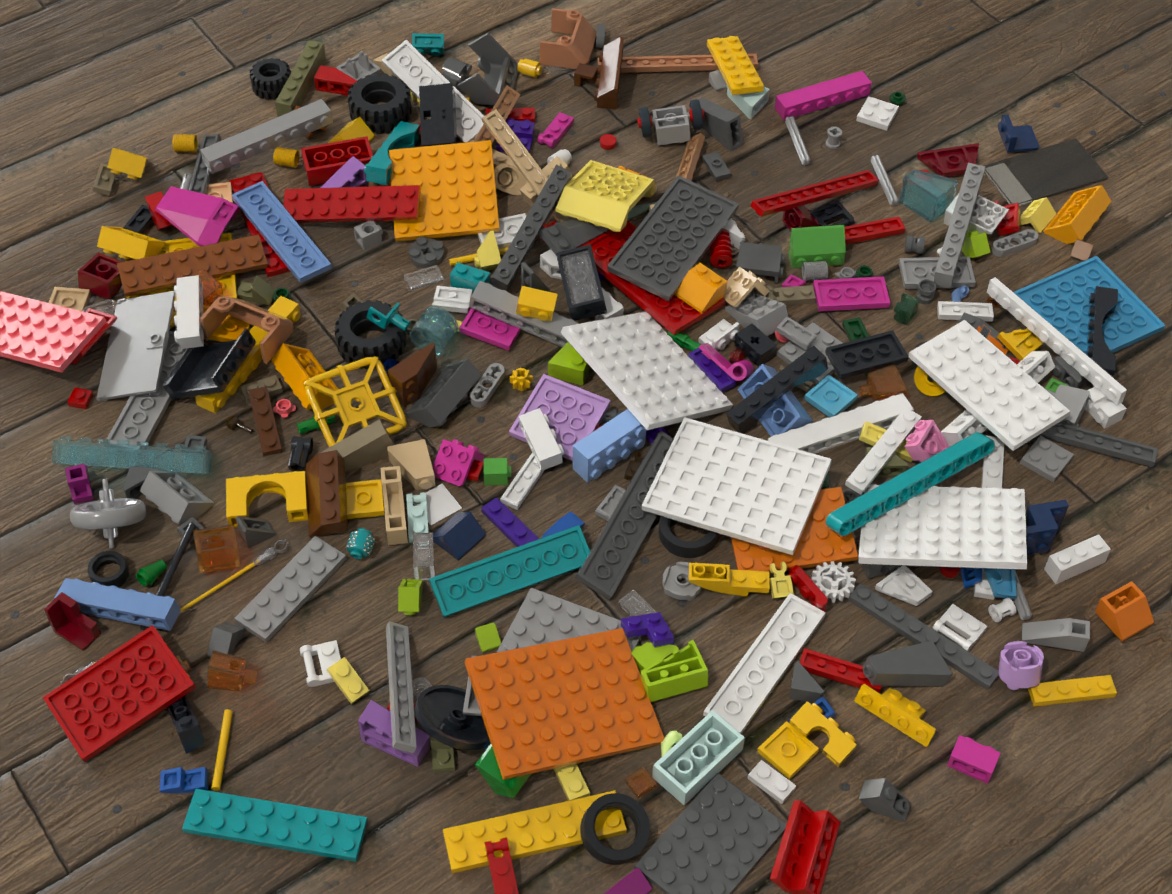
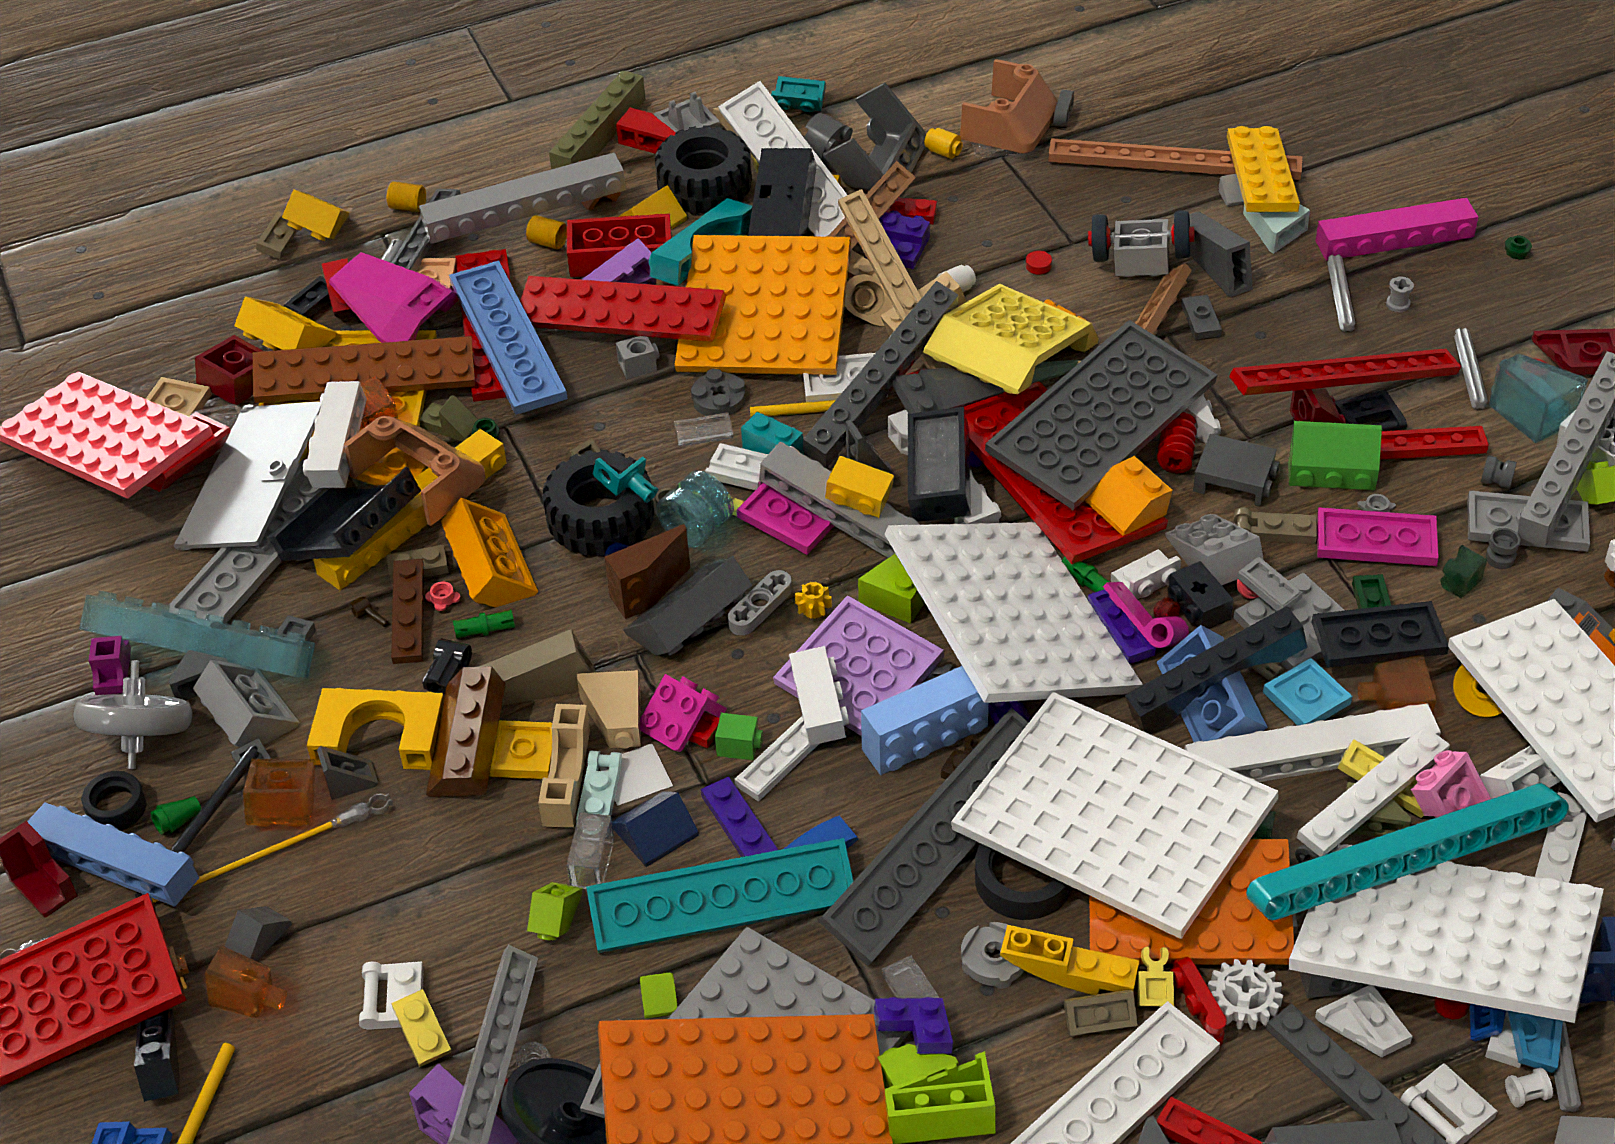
camera: 15 degrees right, 5 degrees down
(80, 398) = (151, 541): red plate -> none
(269, 77) = (551, 116): black tyre -> none
(290, 589) = (375, 871): light grey plate -> none
(360, 393) = (555, 585): yellow plate -> none
(360, 543) = (498, 817): teal head -> none
(488, 254) = (807, 404): light yellow slope -> none
(556, 130) = (962, 237): dark pink plate -> none
(585, 72) = (1026, 157): reddish brown panel -> none
(609, 74) = (1062, 164): reddish brown slope -> none
(609, 503) = (901, 813): light grey plate -> none
(741, 284) = (1196, 499): tan bracket -> none
(752, 605) = (1100, 1012): none -> dark tan plate
(793, 281) = (1286, 506): dark pink tile -> none
(815, 270) = (1323, 493): light grey piece -> none
(864, 271) = (1406, 504): dark green plate -> none
(877, 113) = (1480, 265): white plate -> none
(955, 310) = (1542, 584): white plate -> none
(960, 293) = (1558, 560): medium blue arm -> none

